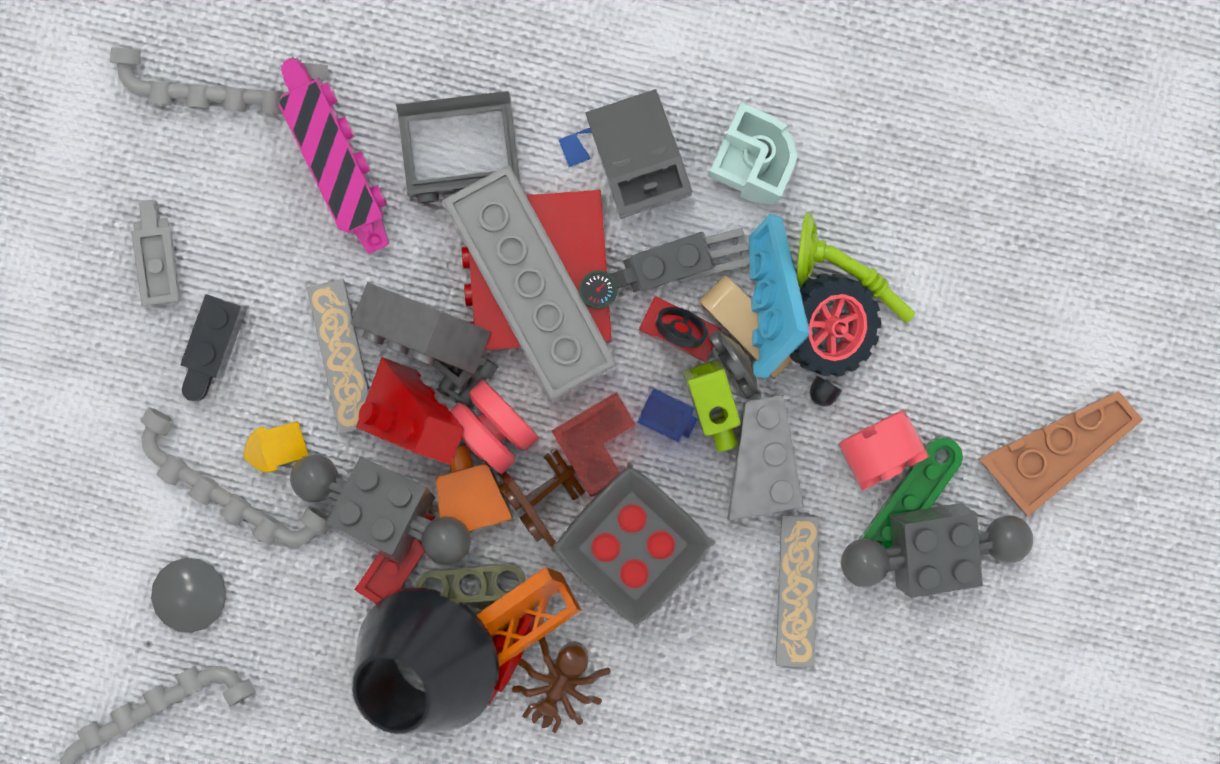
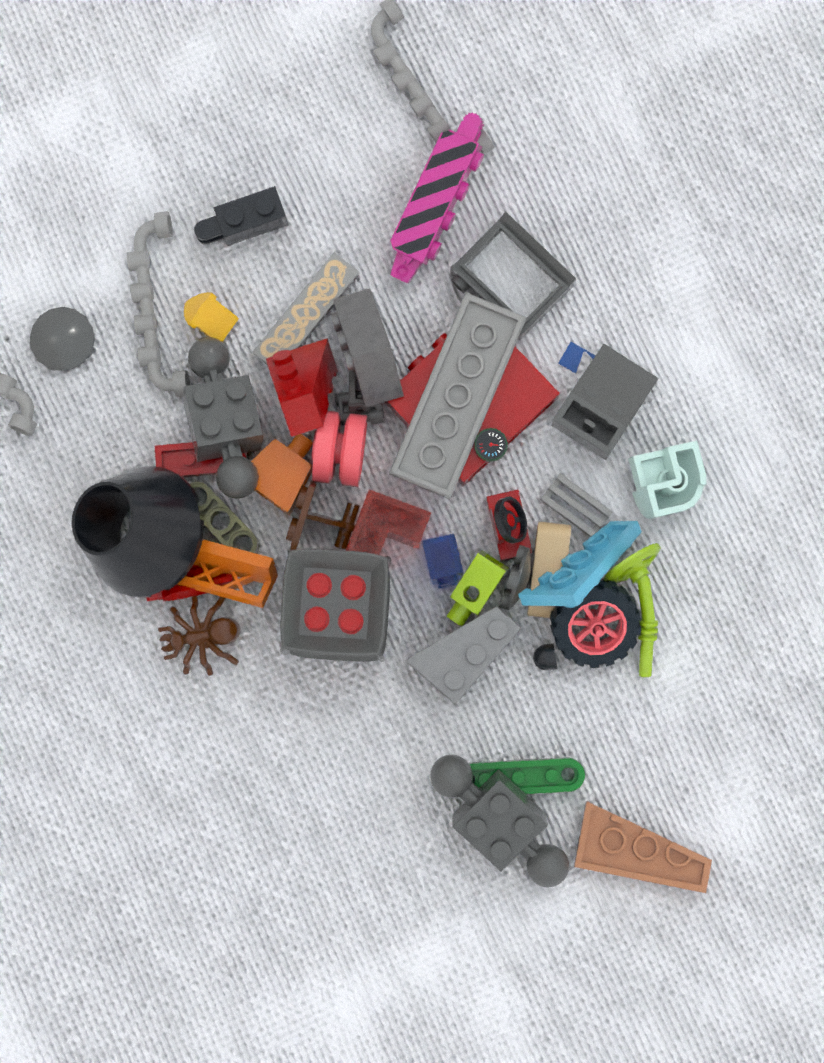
camera: 55 degrees right, 5 degrees down
(155, 257) = (273, 136): light grey hinge -> none
(665, 263) = (545, 478): dark grey hinge -> none
(797, 591) = (394, 749): tile -> none
(883, 449) = (539, 727): coral brick -> none

